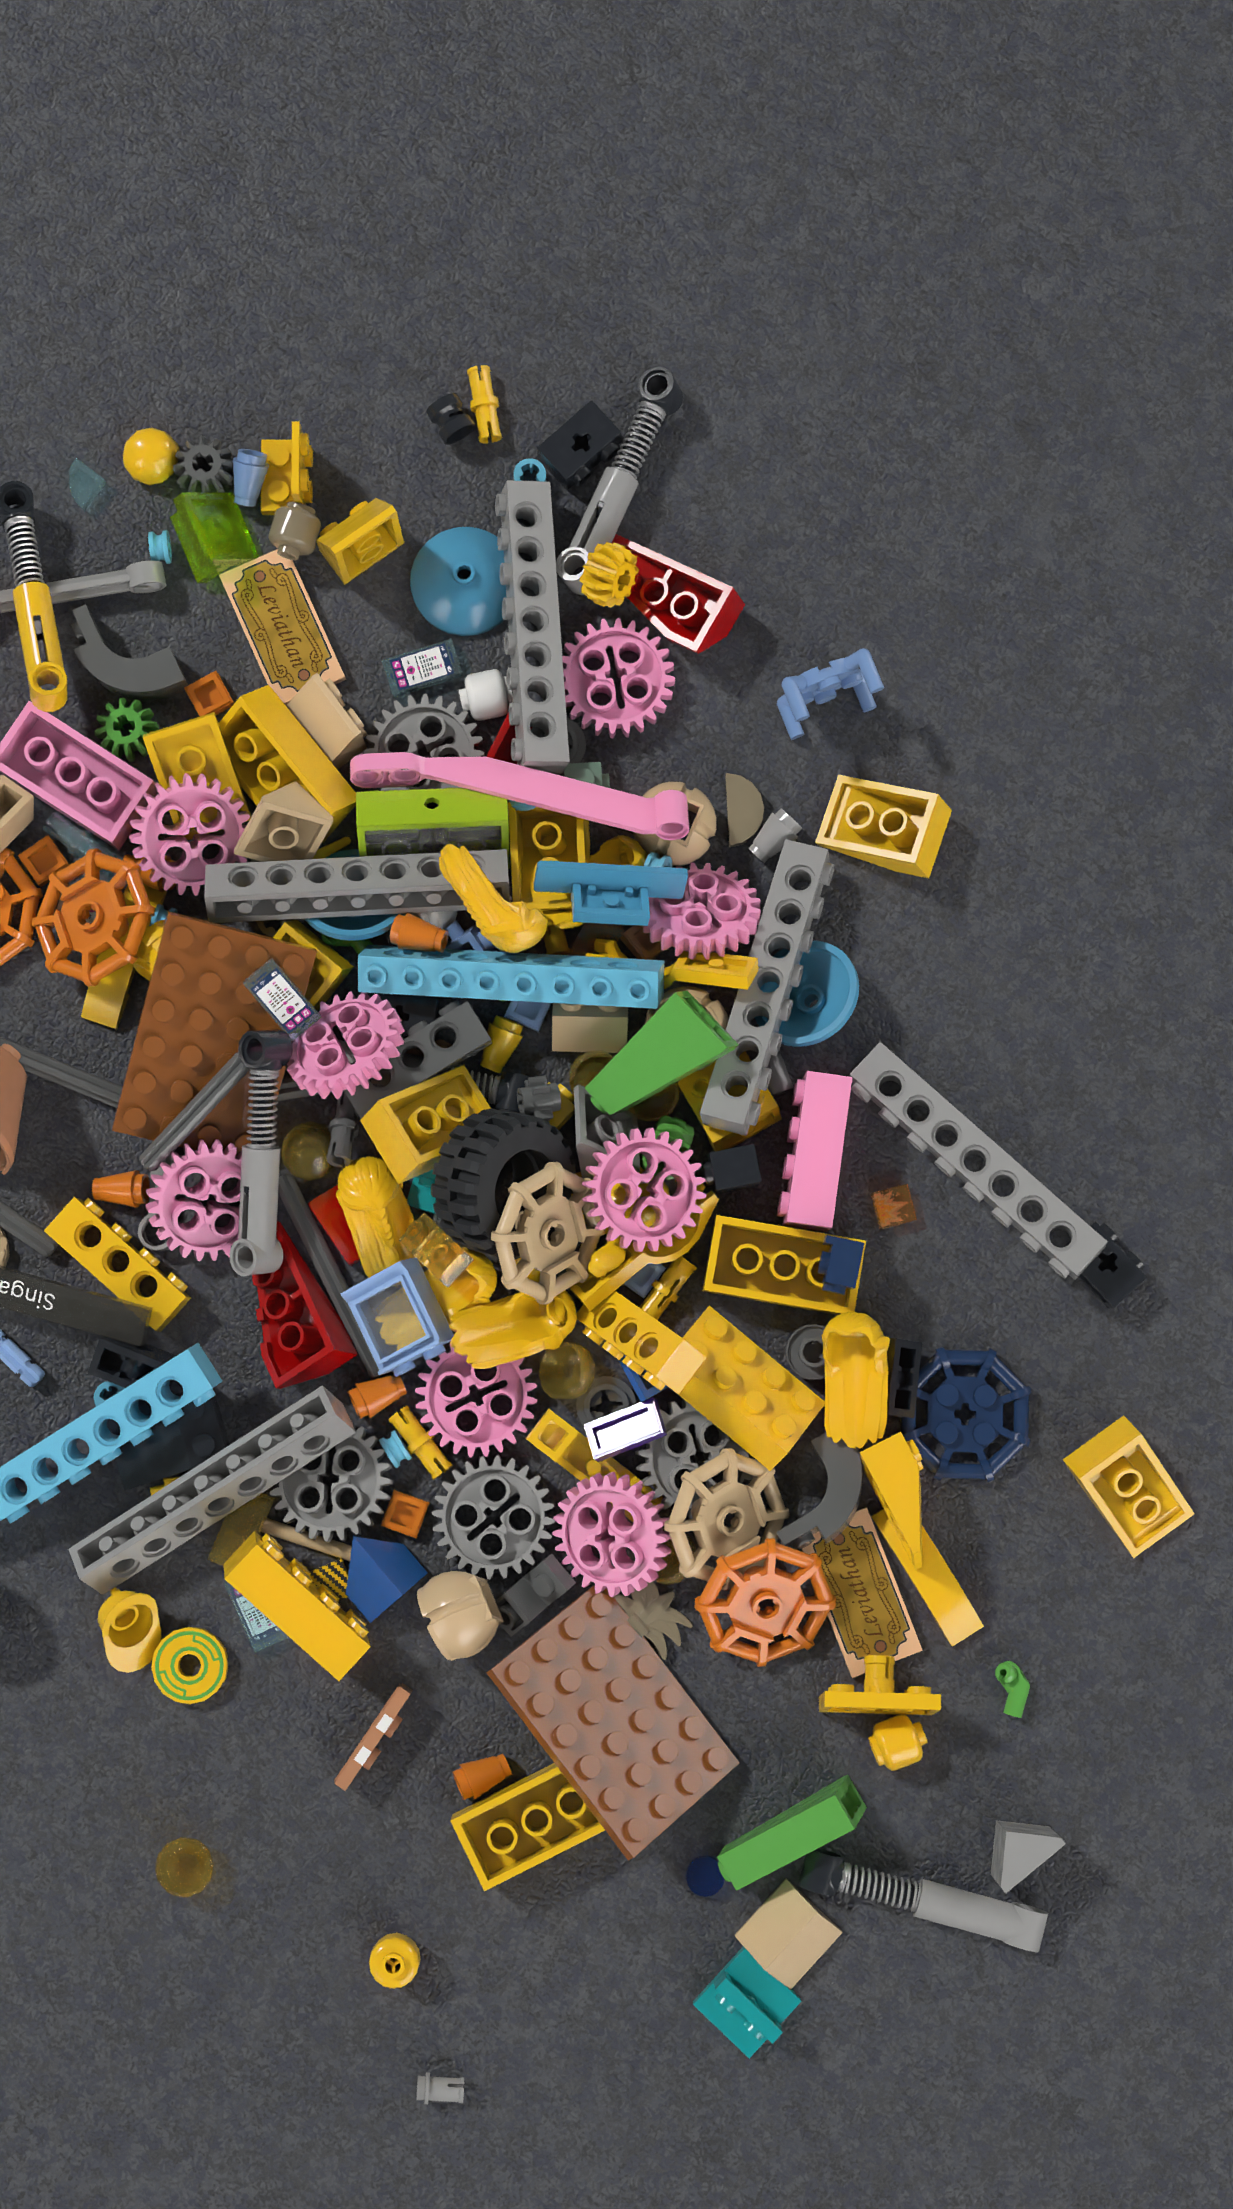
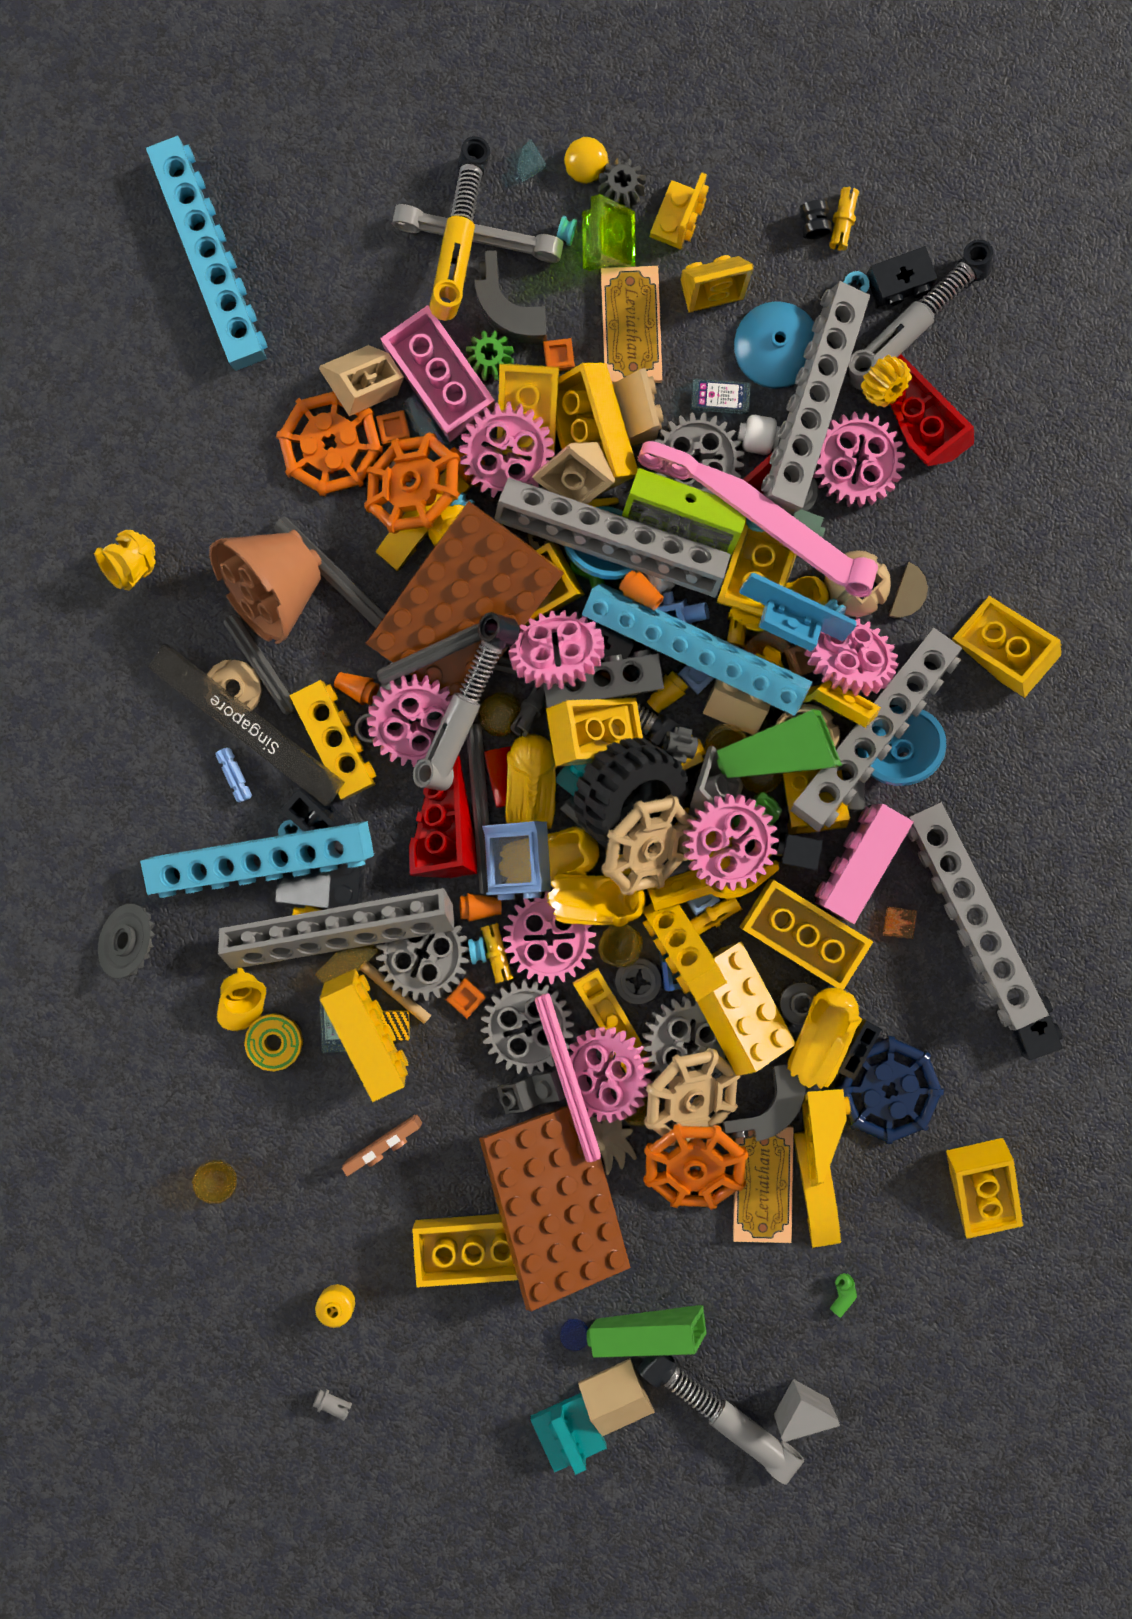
camera: 25 degrees right, 5 degrees up
(249, 474) = (652, 202): medium blue cone -> none
(282, 999) = (525, 598): tile -> none
(294, 530) = (669, 256): dark tan head -> none
(380, 1575) = (431, 1035): blue slope -> none
(435, 1249) = (562, 823): clear yellow slope -> none
(460, 1613) = (477, 1087): tan piece -> none
(480, 1775) = (446, 1202): orange cone -> none
(503, 923) = (707, 607): yellow hair -> none
(566, 1557) = (567, 1077): none -> bright pink axle
(607, 1258) = (682, 878): yellow arm -> none
(625, 1429) = (645, 1005): tile -> none
(773, 834) = (925, 621): light grey cone -> none
(822, 685) = (1007, 523): medium blue plate -> none
(840, 1264) = (849, 952): dark blue brick -> none
(879, 1693) = (749, 1263): yellow plate -> none
(897, 1742) = (747, 1300): yellow head -> none

